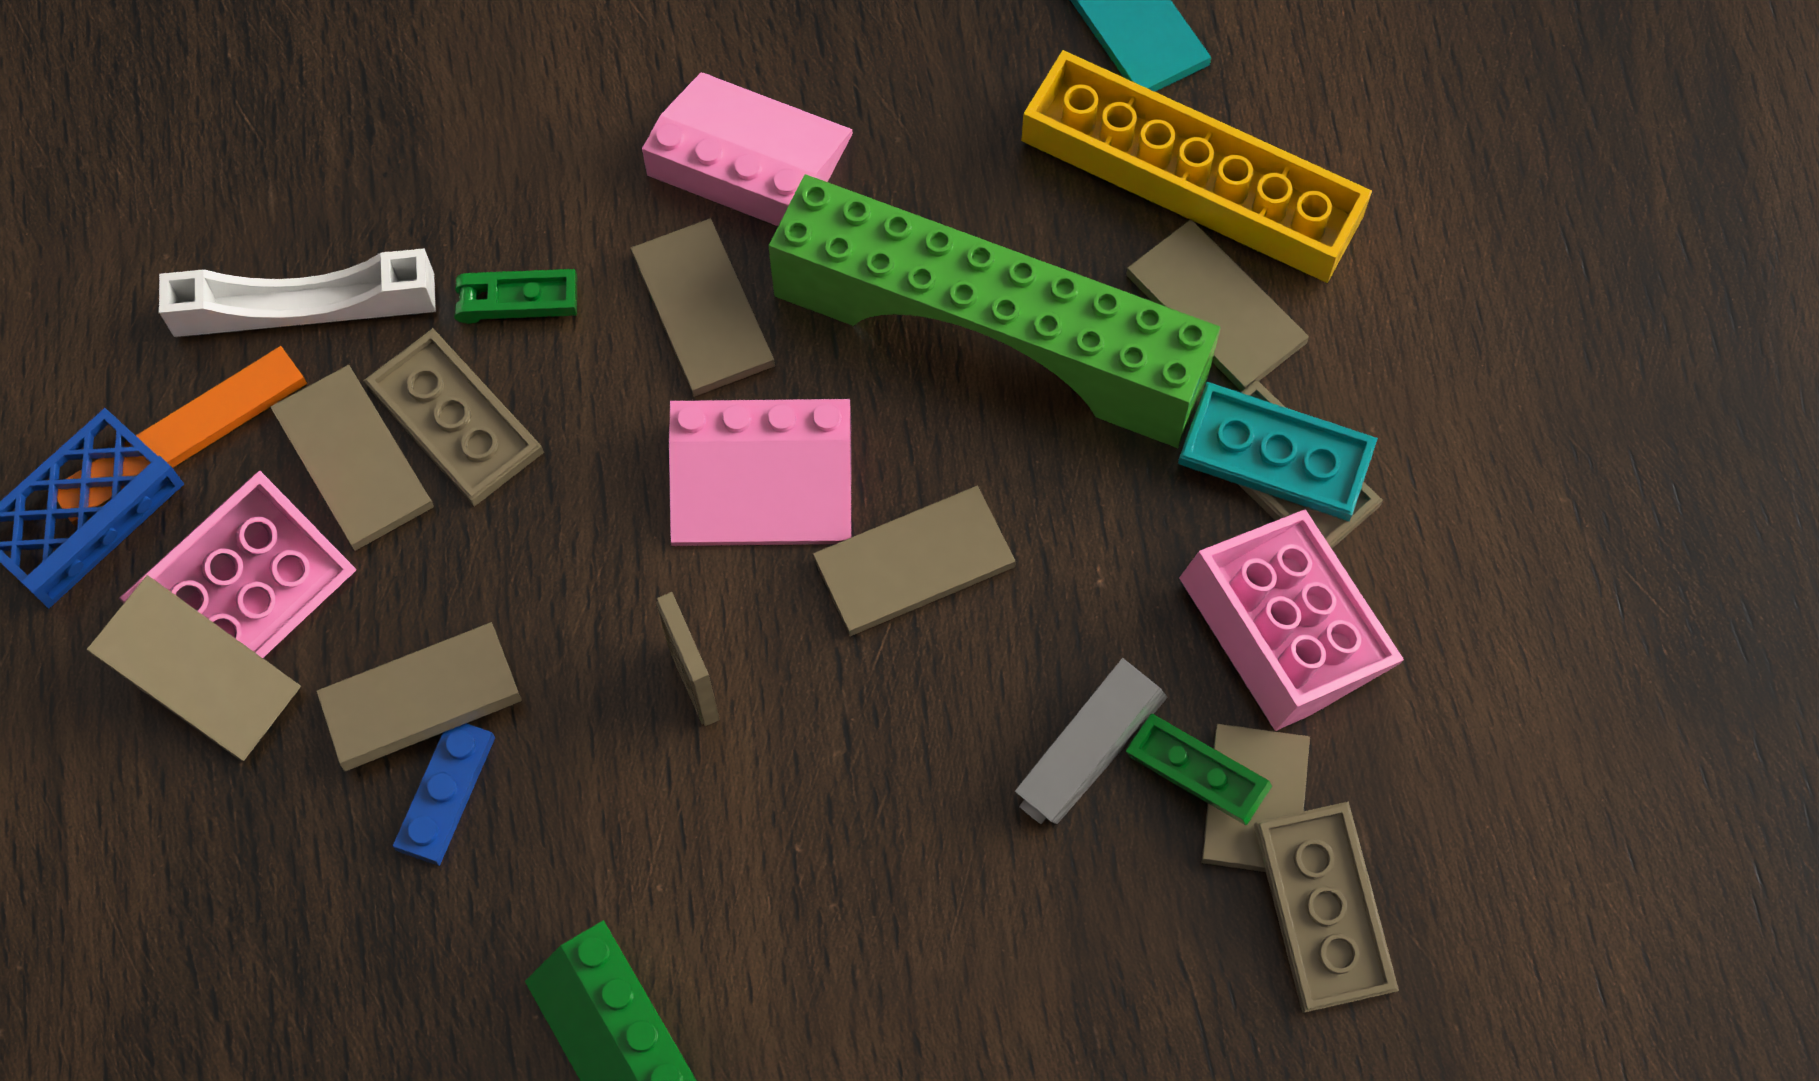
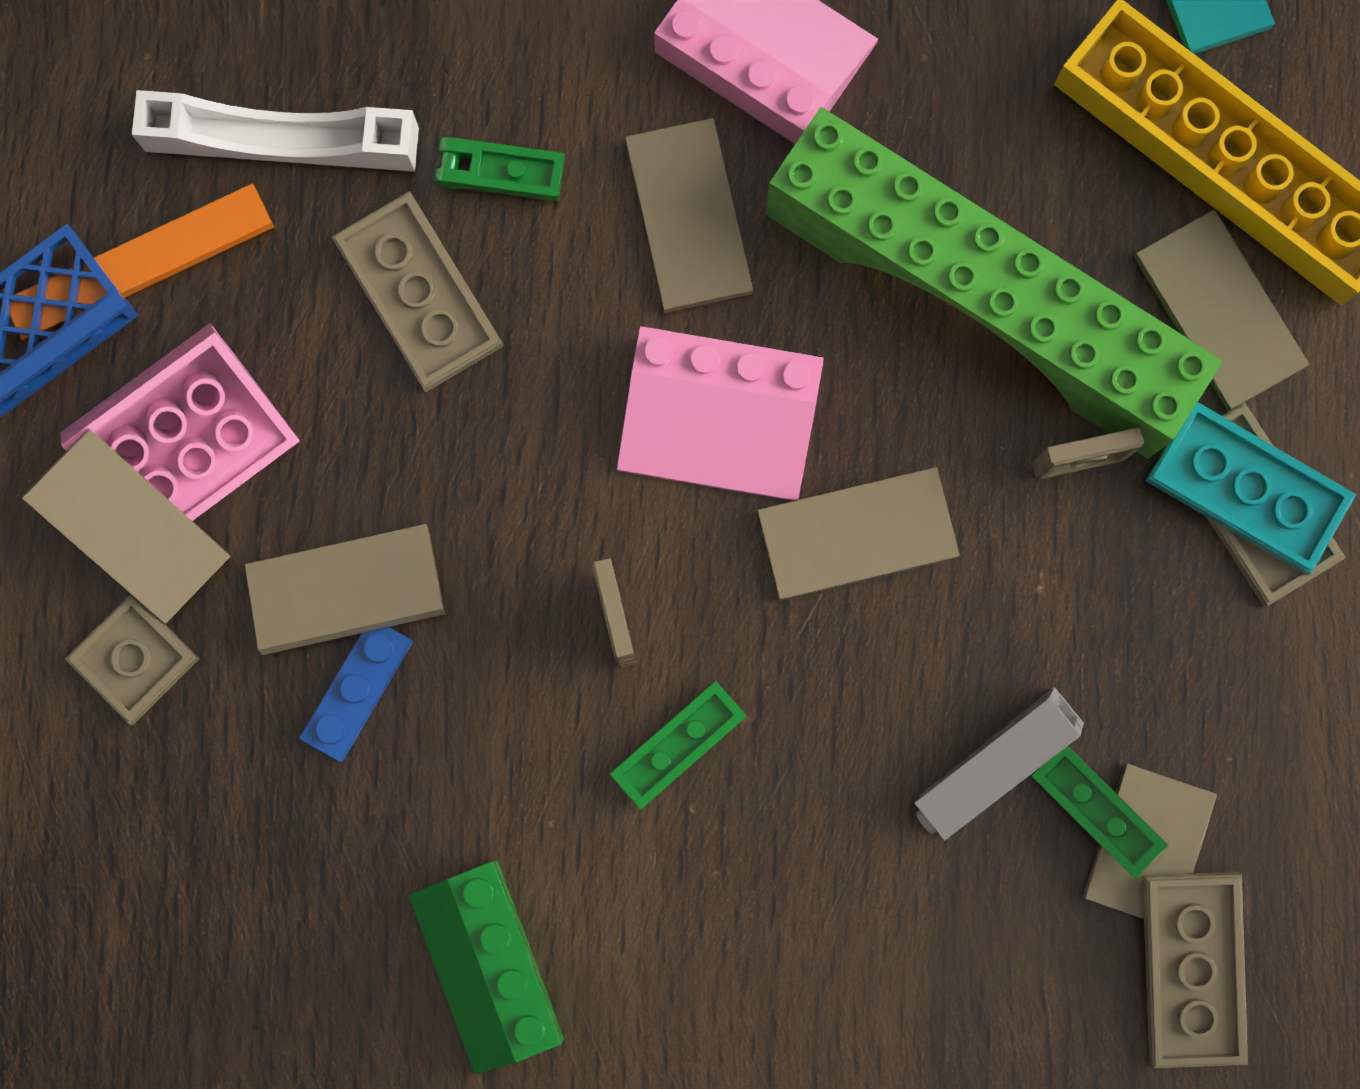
camera: 10 degrees right, 15 degrees up
(214, 802) = (132, 659): none -> dark tan tile
(352, 457) = (309, 318): dark tan tile -> none
(772, 785) = (678, 745): none -> green plate
(1115, 442) = (1087, 453): none -> dark tan tile
(1289, 618) = (1224, 670): bright pink slope -> none

